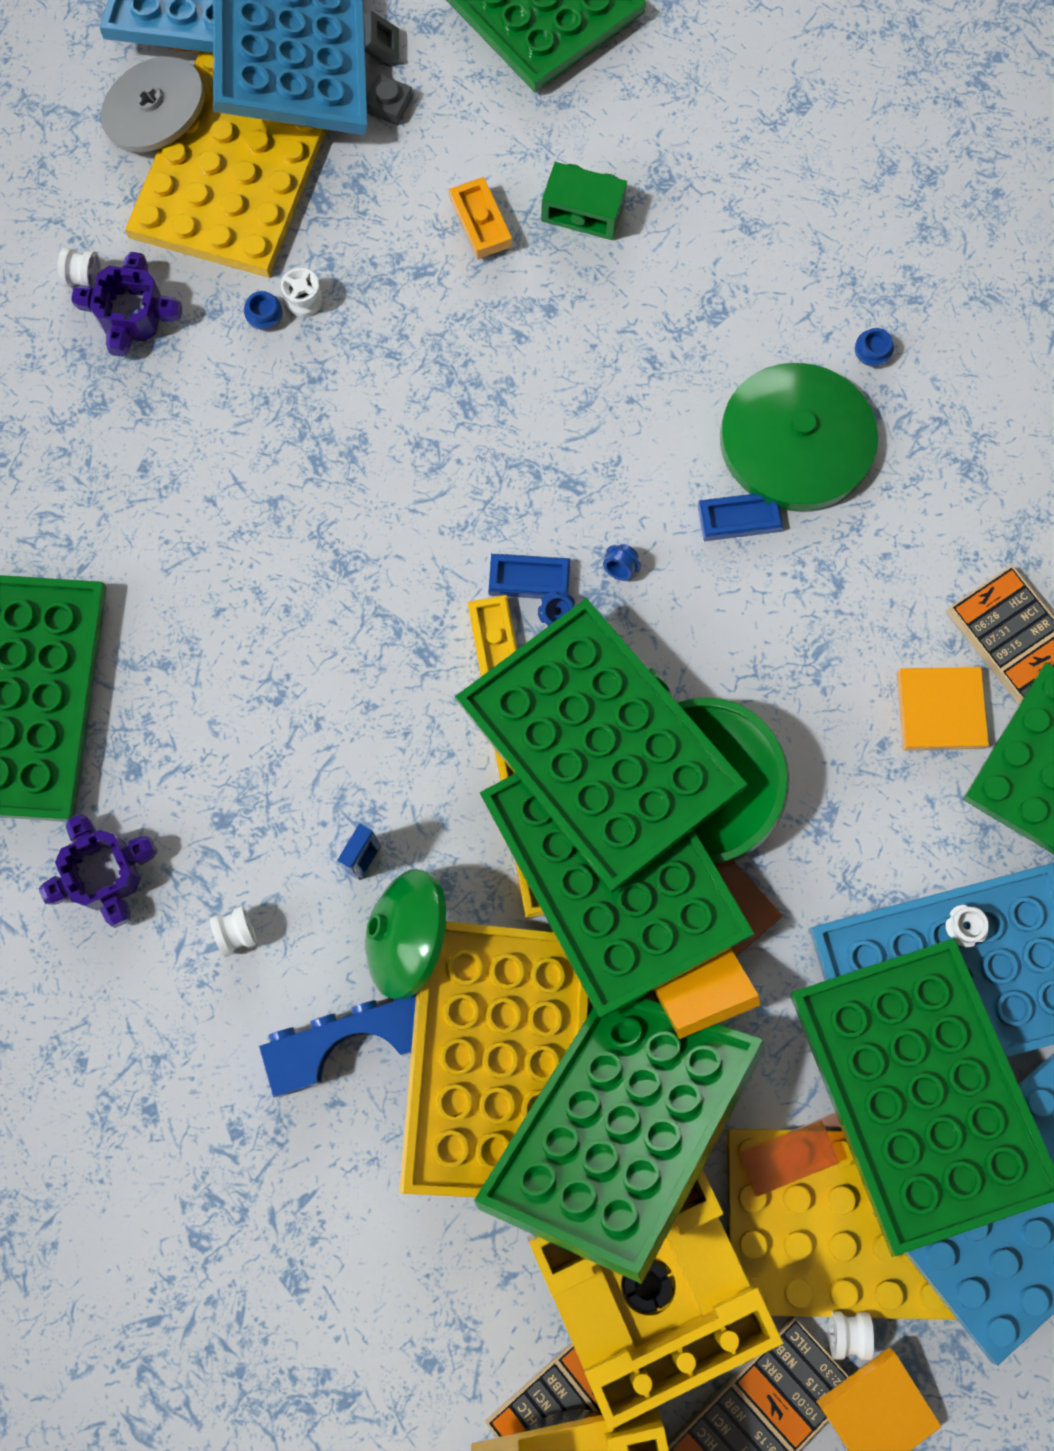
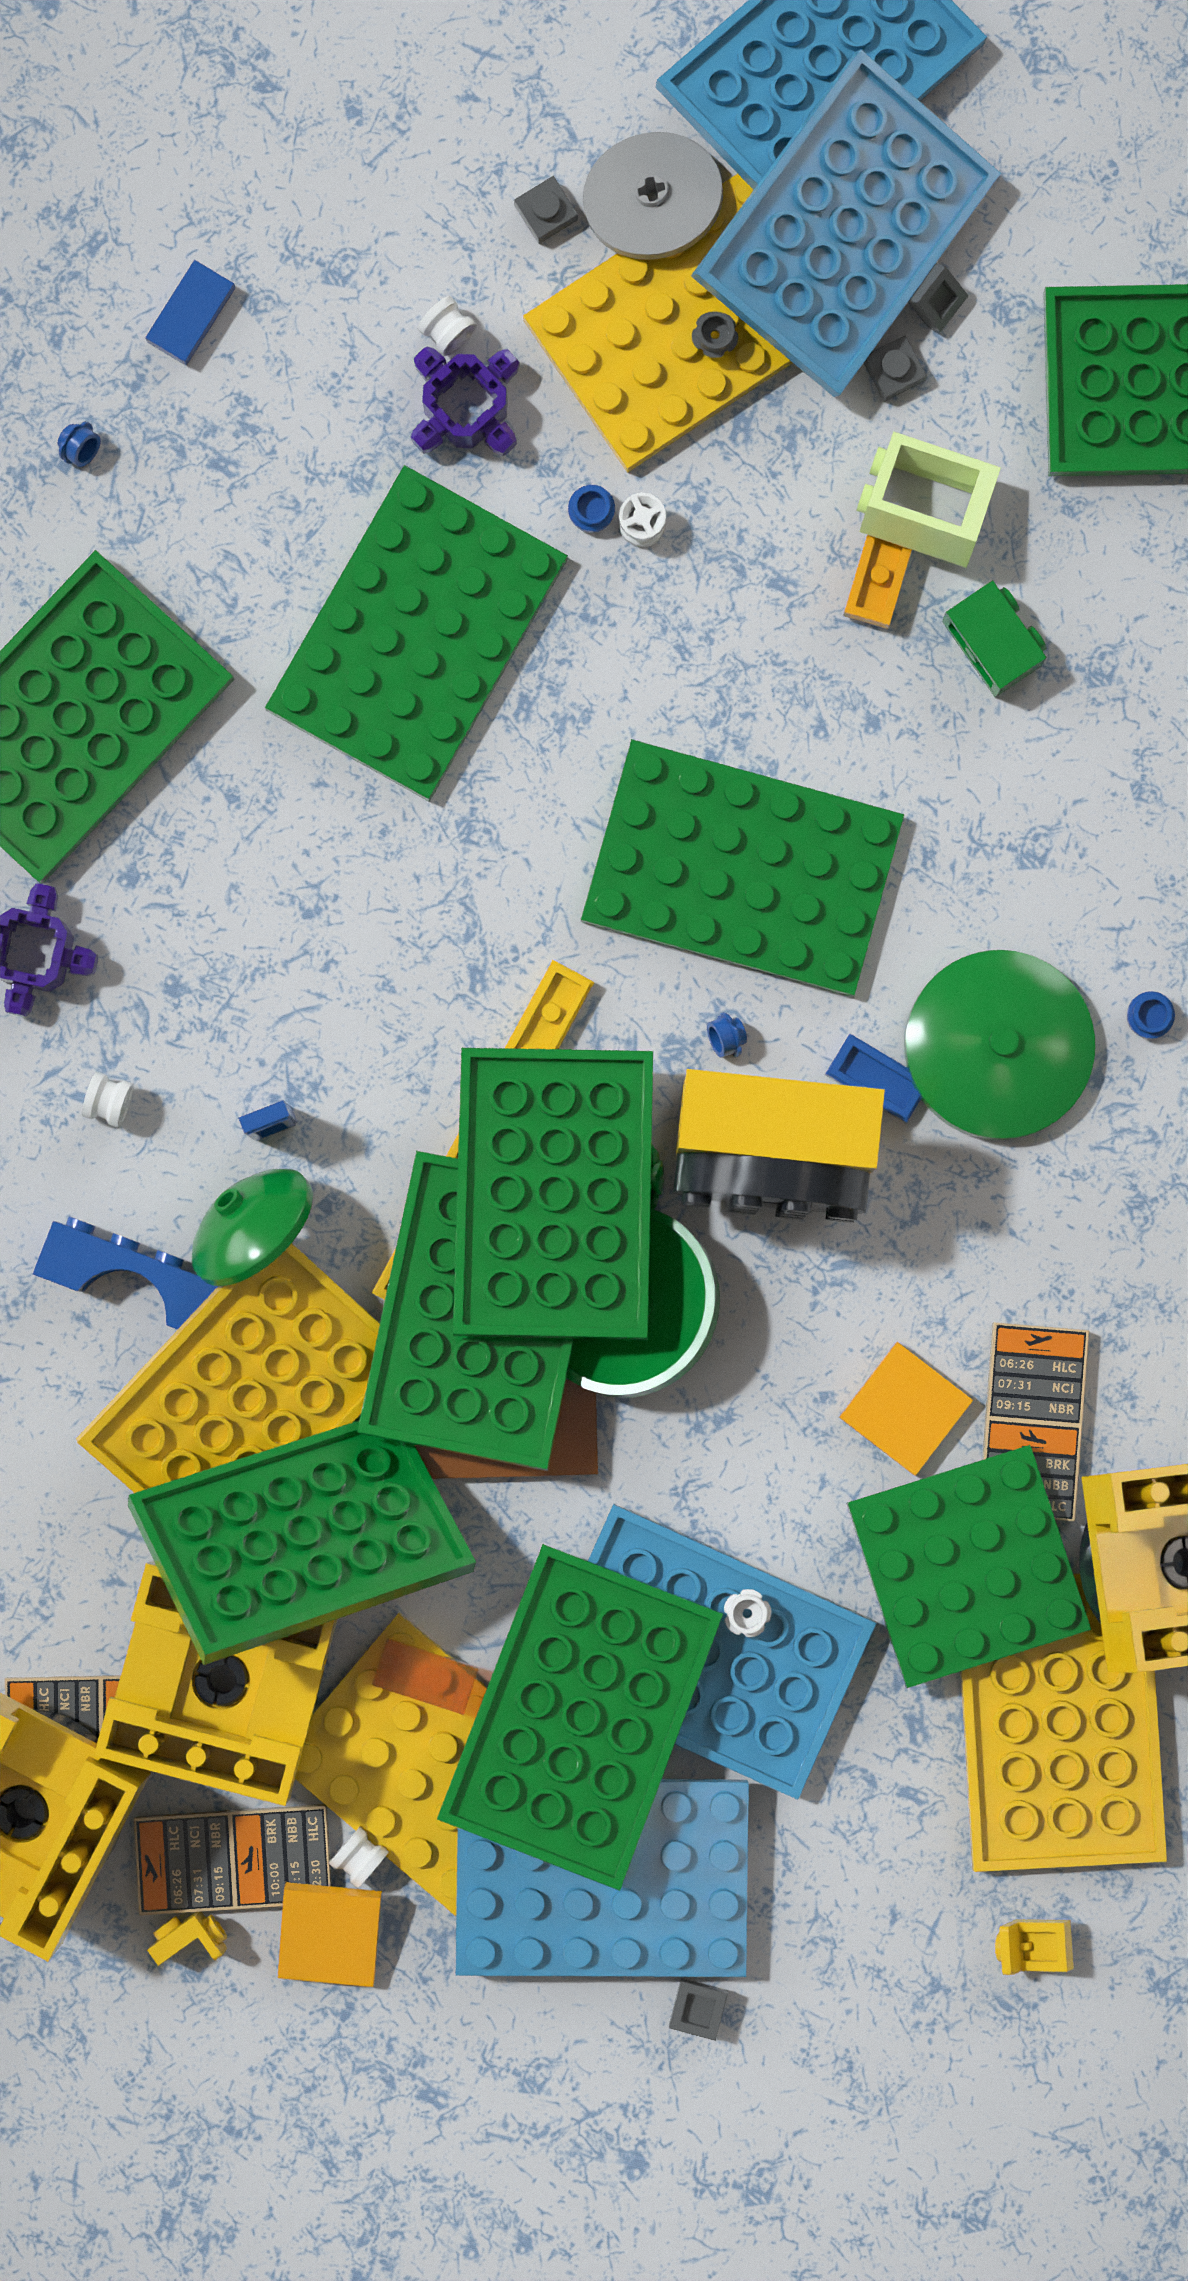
camera: 45 degrees right, 10 degrees up
(90, 162) = (546, 209): none -> dark grey plate
(208, 470) = (416, 633): none -> green plate
(254, 139) = (715, 322): none -> dark grey plate
(481, 164) = (916, 529): none -> yellowish green window
(528, 575) = (631, 980): blue tile -> none
(542, 454) = (742, 868): none -> green plate
(551, 601) = (628, 1021): blue plate -> none
(708, 995) = (466, 1488): light orange tile -> none
(722, 583) = (777, 1145): none -> yellow piece

